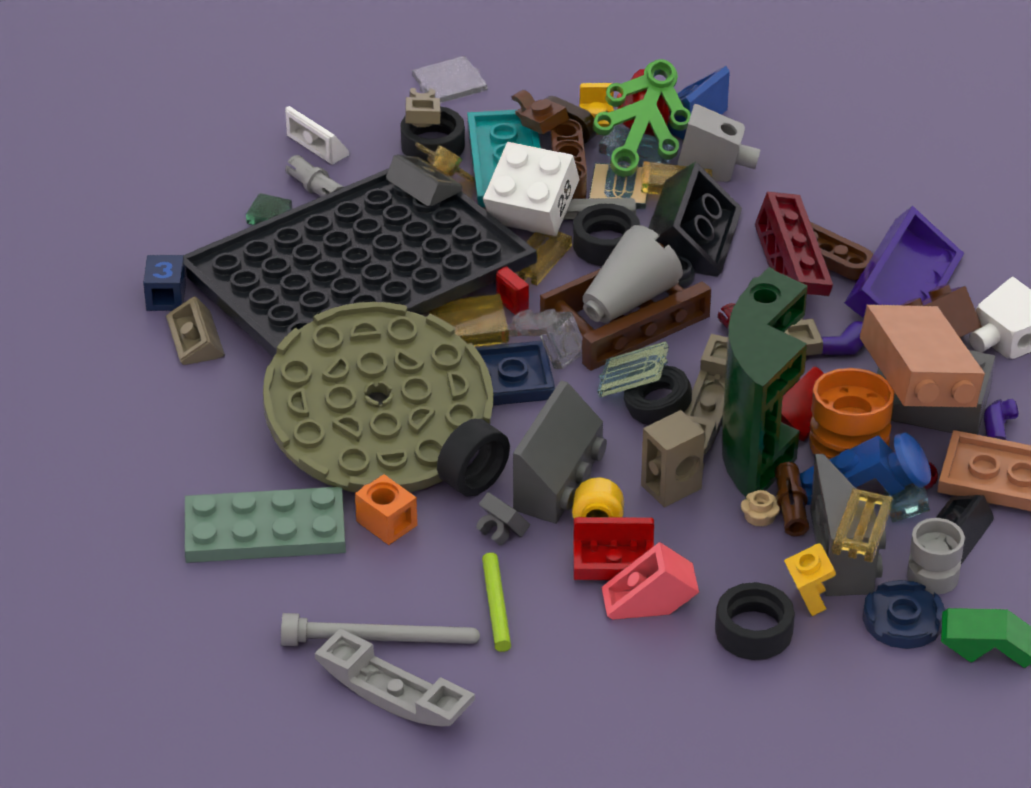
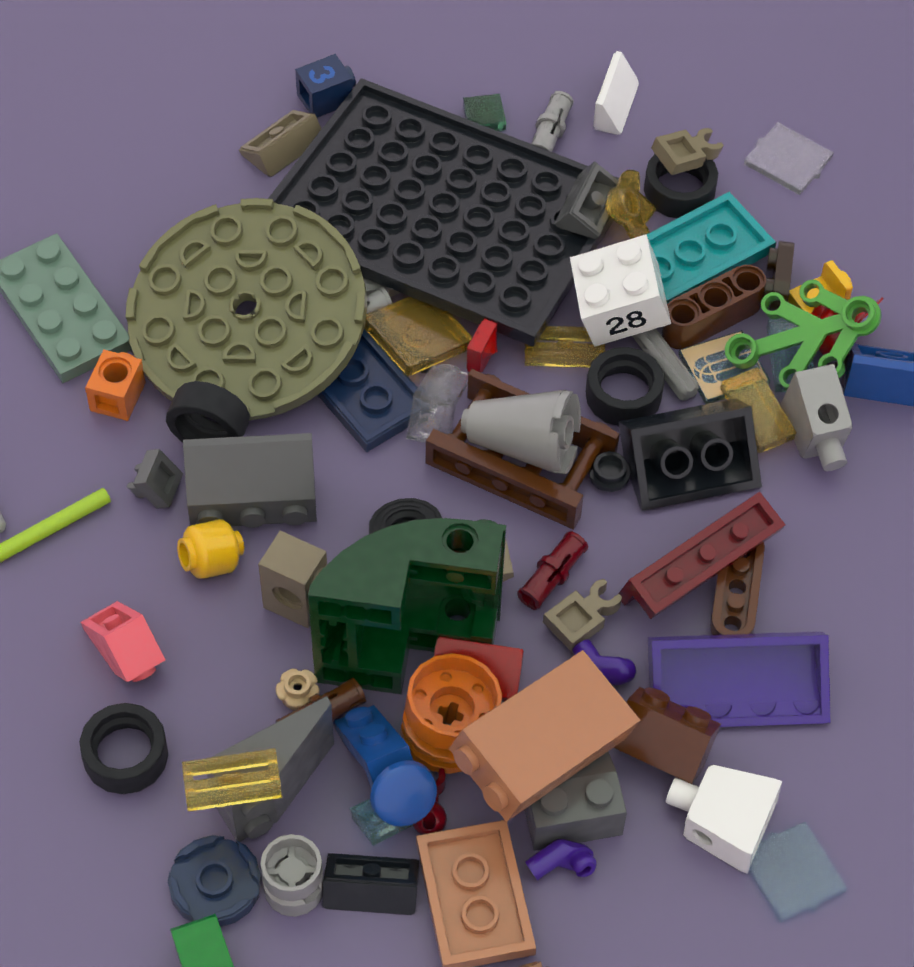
camera: 60 degrees right, 15 degrees up
(539, 115) = (751, 248): reddish brown plate -> none
(609, 545) = (155, 587): red bracket -> none
(633, 369) = (424, 494): clear light blue piece -> none
(808, 571) = (172, 765): yellow bracket -> none

